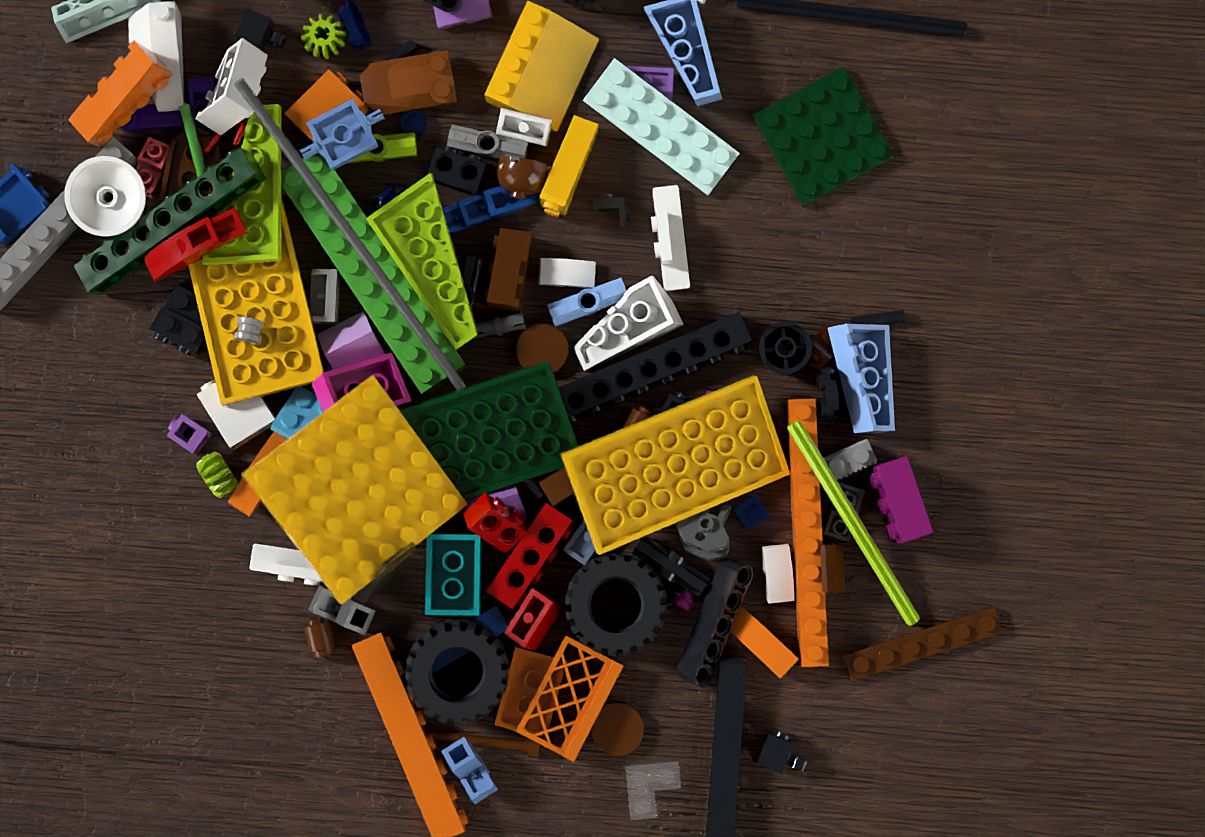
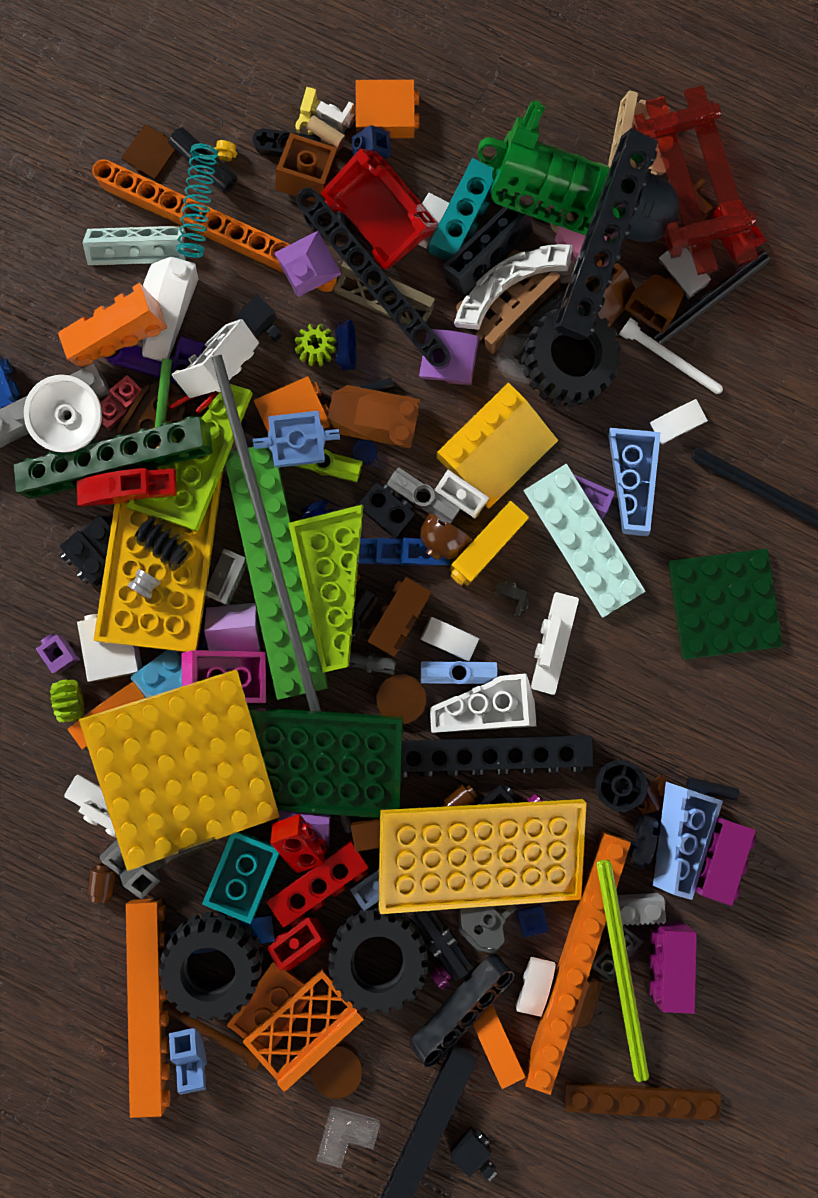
camera: 15 degrees right, 0 degrees up
(251, 285) = (161, 544): none -> black piece
(911, 380) = (725, 861): none -> magenta brick

